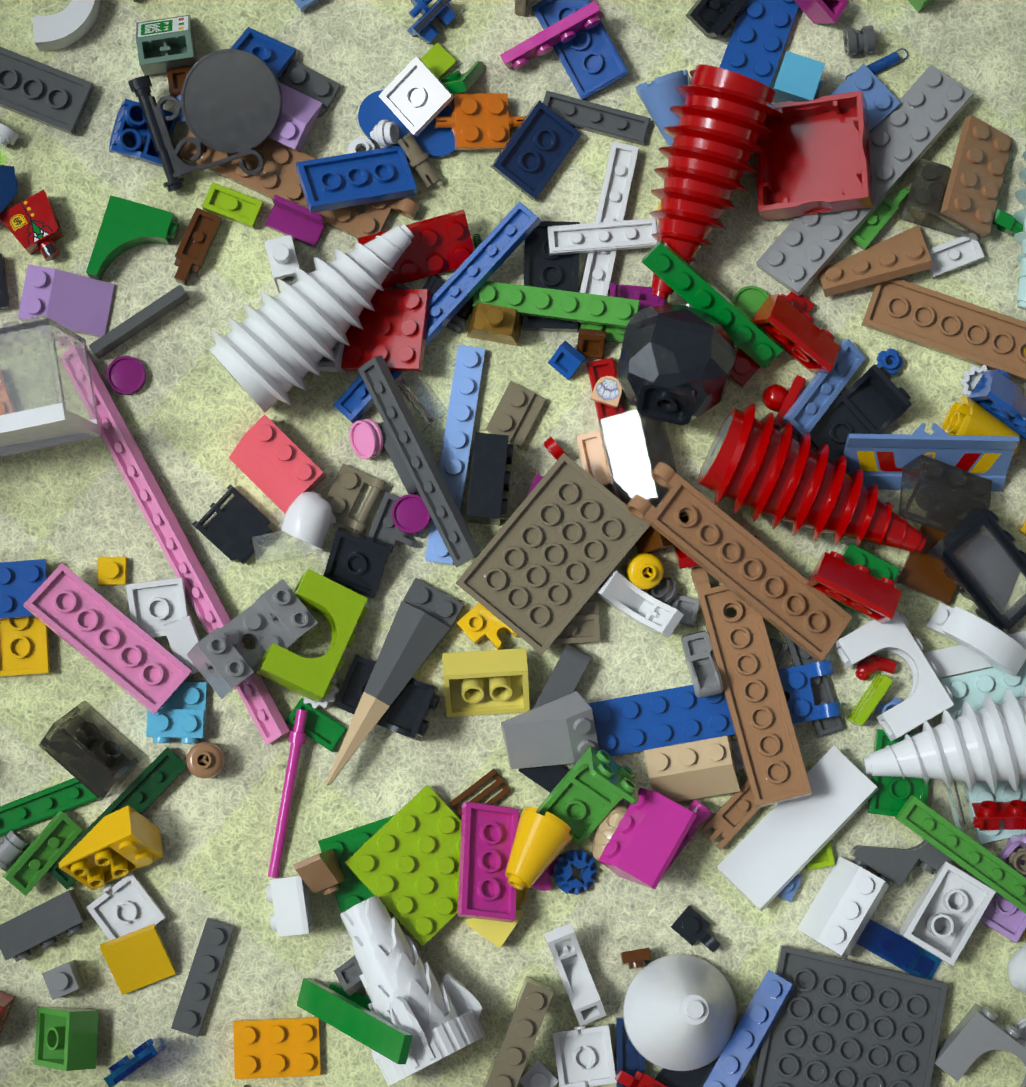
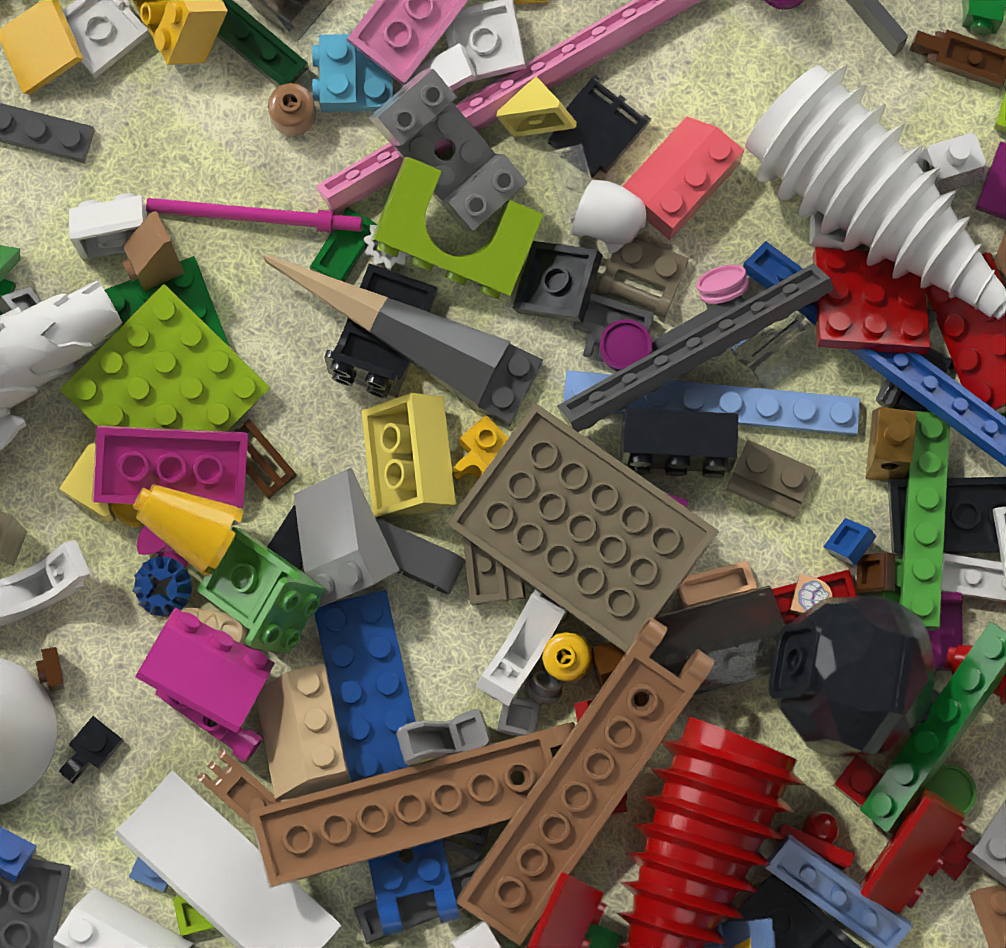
camera: 90 degrees right, 5 degrees down
(220, 571) = (534, 111): none -> light yellow slope
(554, 449) = (728, 530): red tile -> none

